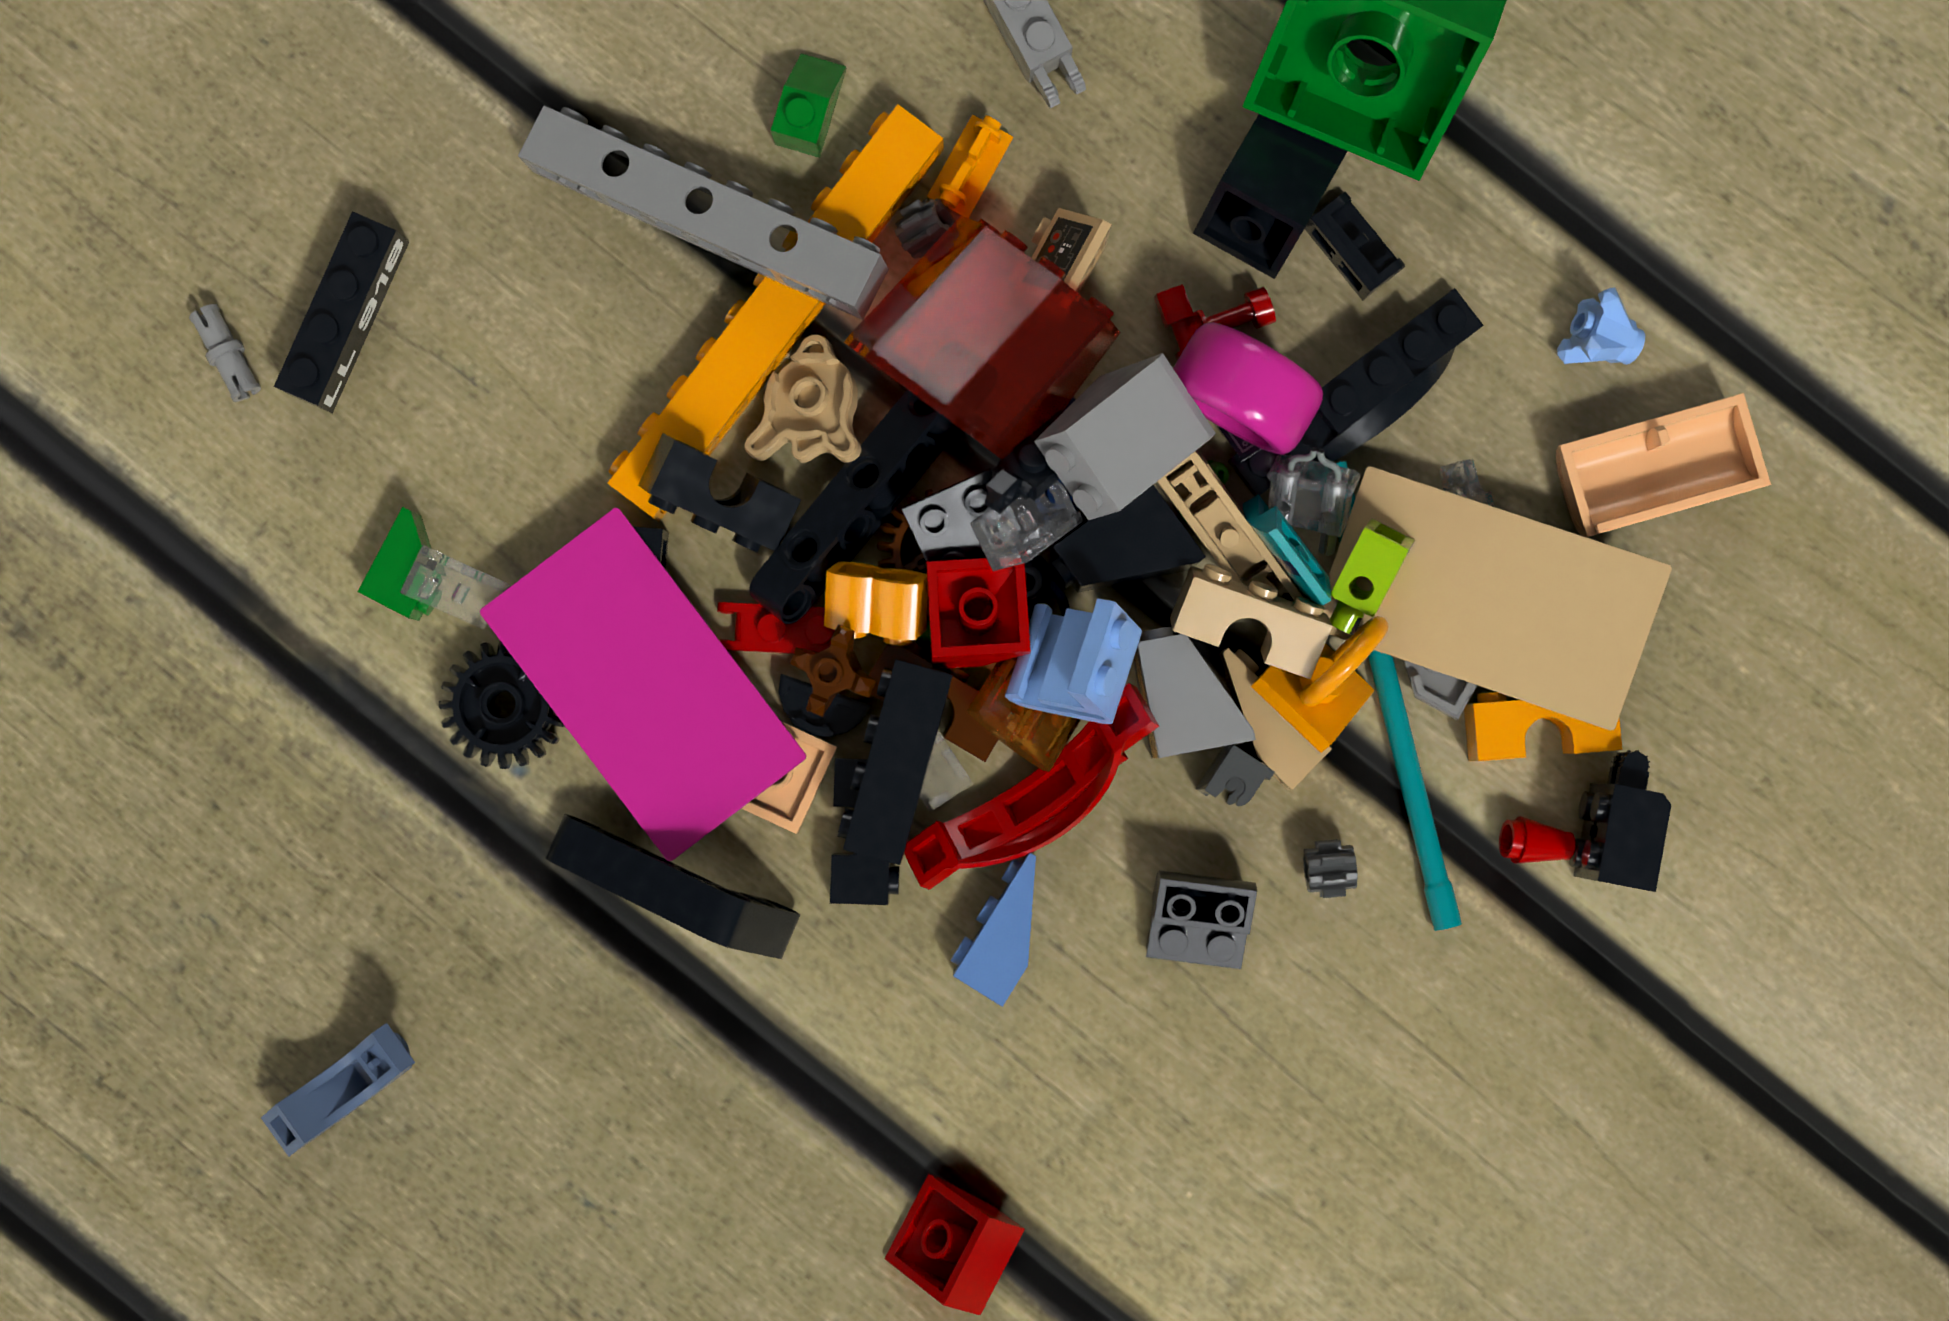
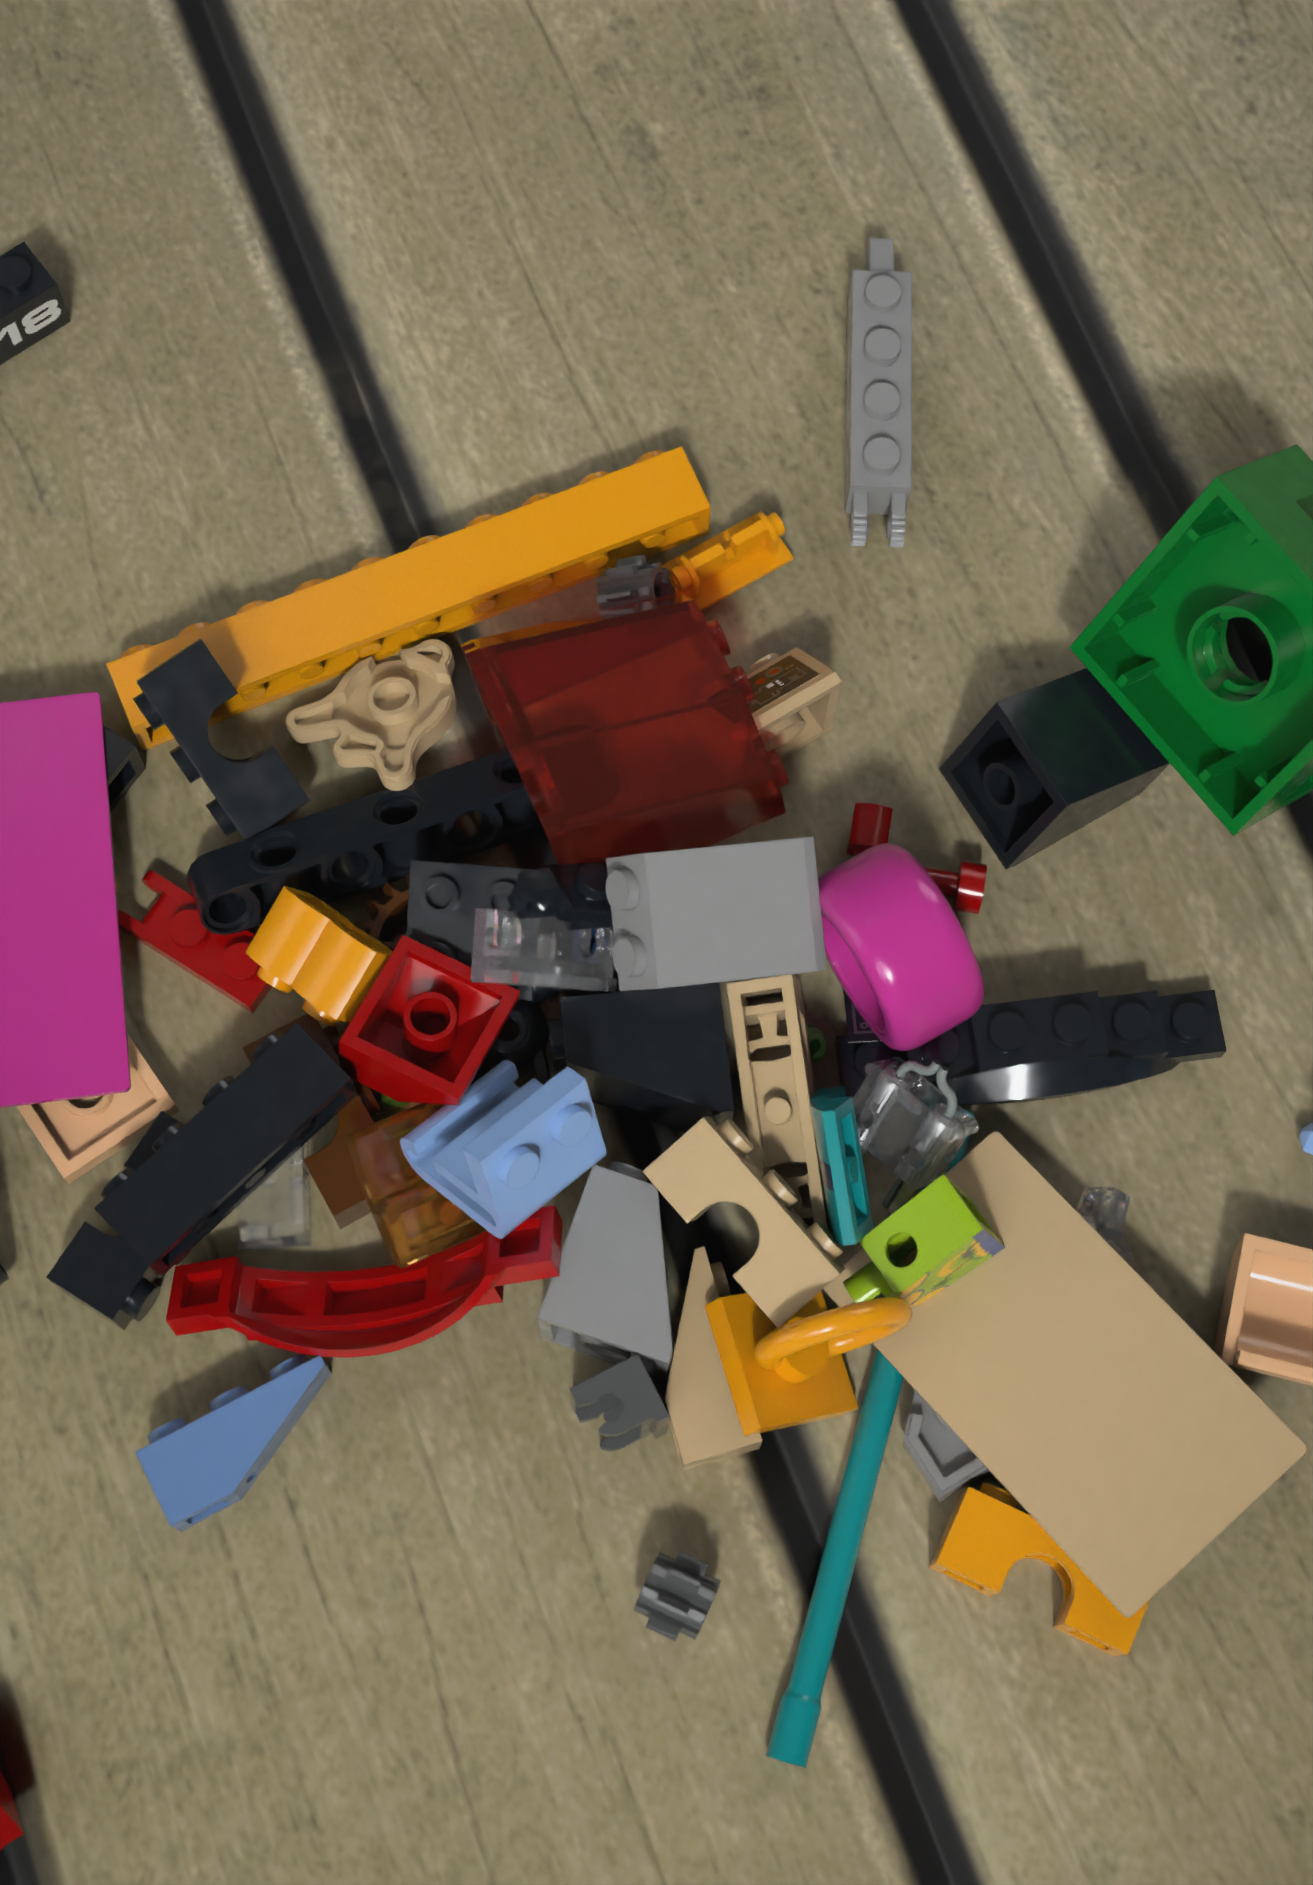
camera: 30 degrees right, 15 degrees down
(734, 227) = (483, 551): light grey piece -> none
(807, 105) = (582, 405): green slope -> none
(833, 671) = (221, 1004): reddish brown rock -> none
(838, 719) = (181, 1049): black plate -> none
(1200, 919) = (479, 1564): brick -> none
(1353, 246) = (1118, 879): black hinge -> none
(1533, 841) = (956, 1715): red cone -> none
(1622, 827) = (1075, 1756): black hinge -> none

